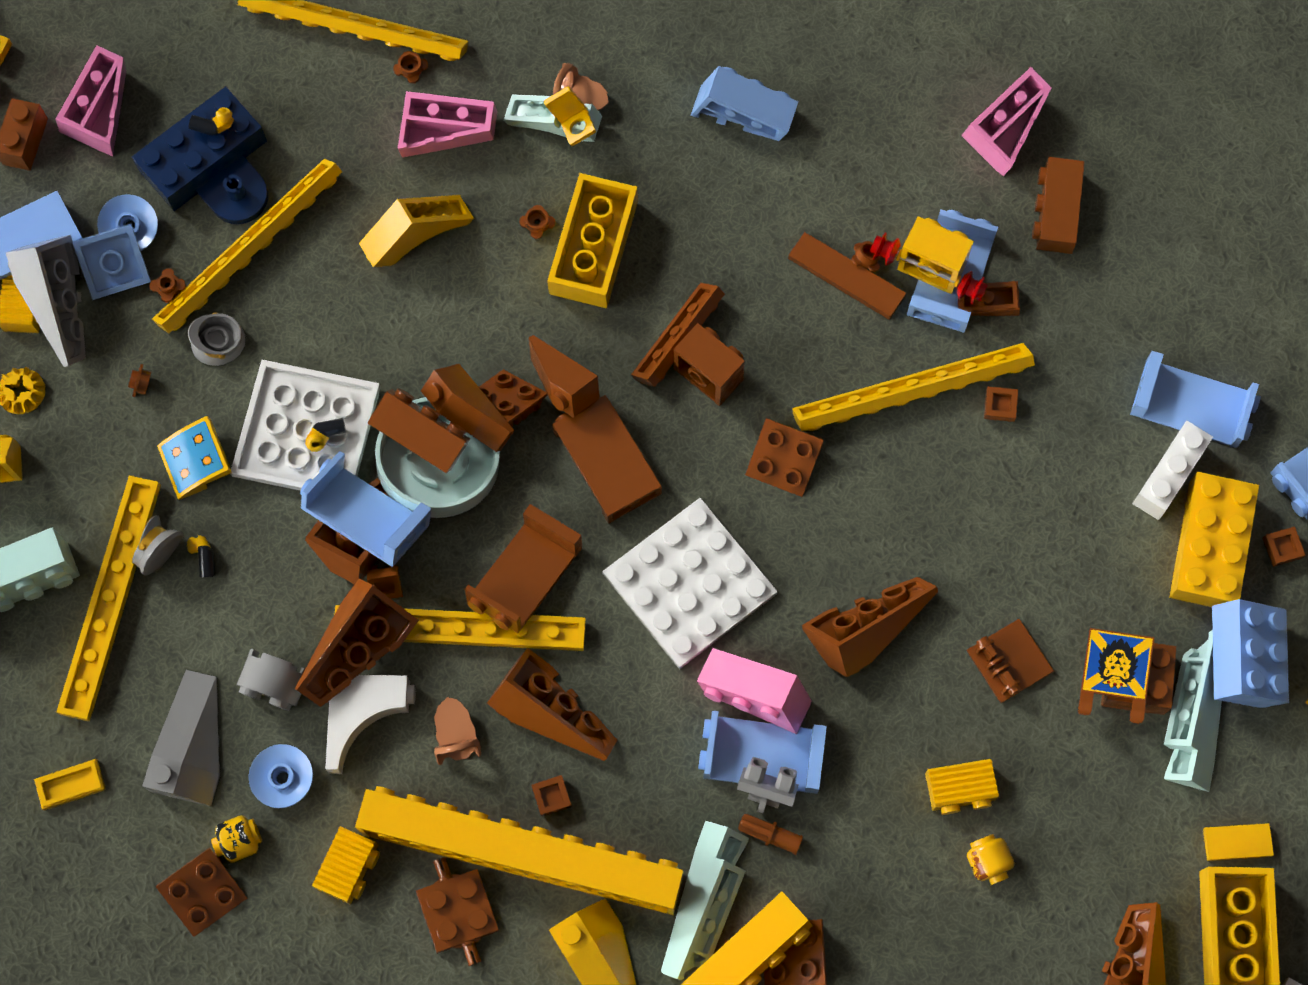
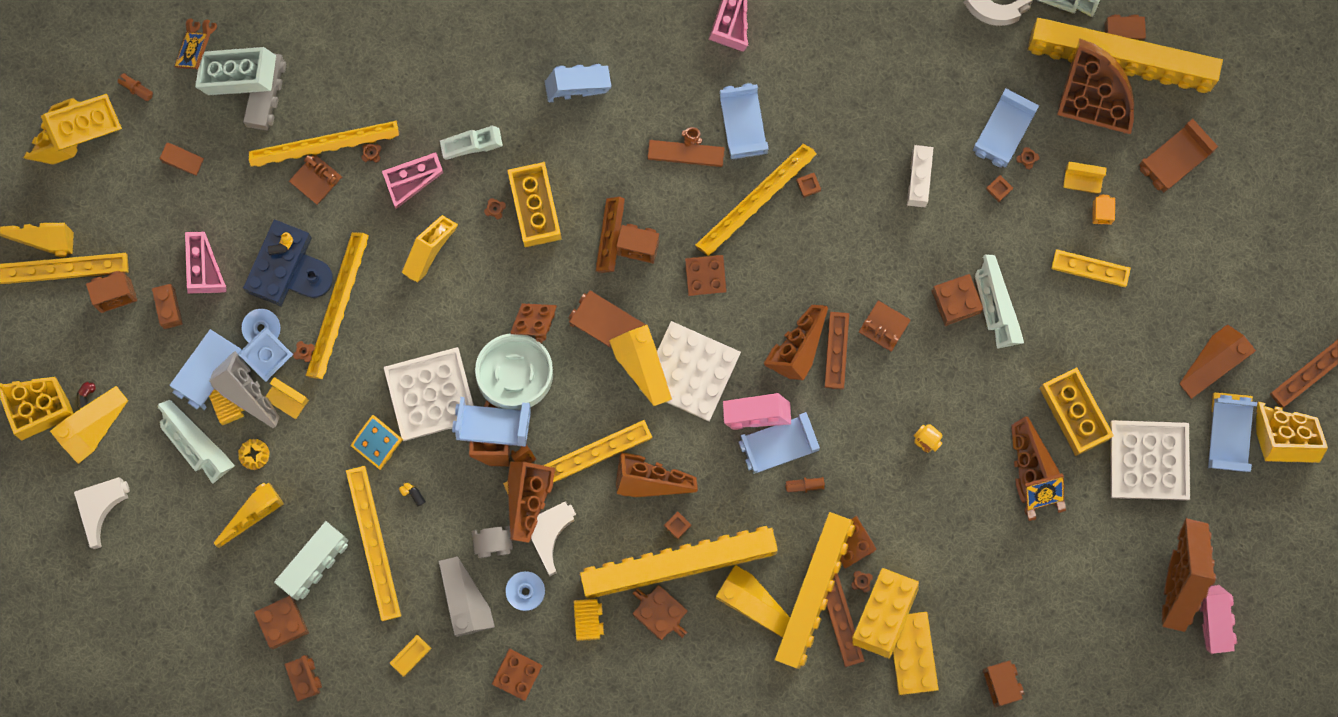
camera: 30 degrees left, 5 degrees up
(107, 337) = (286, 398): none -> yellow panel
(139, 381) = (320, 414): dark orange plate -> none
(155, 546) = (385, 502): light grey piece -> none
(216, 339) = (350, 368): light grey piece -> none
(236, 838) = (519, 636): yellow head -> none
(316, 64) = (315, 179): none -> dark orange hinge
(322, 432) = (442, 391): arm -> none
(419, 429) = (499, 362): dark orange brick -> none
(454, 732) = (606, 518): nougat piece -> none
(464, 403) = (518, 336): dark orange slope -> none
(525, 570) = (597, 410): dark orange panel -> none
(565, 381) = (564, 294): dark orange slope -> none
(569, 110) = (481, 135): yellow bracket -> none
(586, 89) = (477, 119): nougat piece -> none
(622, 526) = (639, 357): none -> yellow wedge
(705, 899) = (789, 537): light aqua wedge -> none
(766, 788) = (791, 462): light grey hips -> none
(919, 660) = (836, 350): none -> dark orange plate
(933, 257) = (731, 120): yellow brick -> none
(961, 786) = (893, 406): yellow brick -> none
(998, 300) = (772, 127): dark orange slope -> none
(1058, 205) = (783, 54): dark orange brick -> none
(1116, 667) = (943, 302): flag -> none
(1174, 395) = (921, 129): light blue panel -> none
(1214, 540) = (961, 205): yellow brick -> none
(1238, 842) = (1052, 362): yellow tile -> none
(1250, 654) = (1010, 258): light blue brick -> none

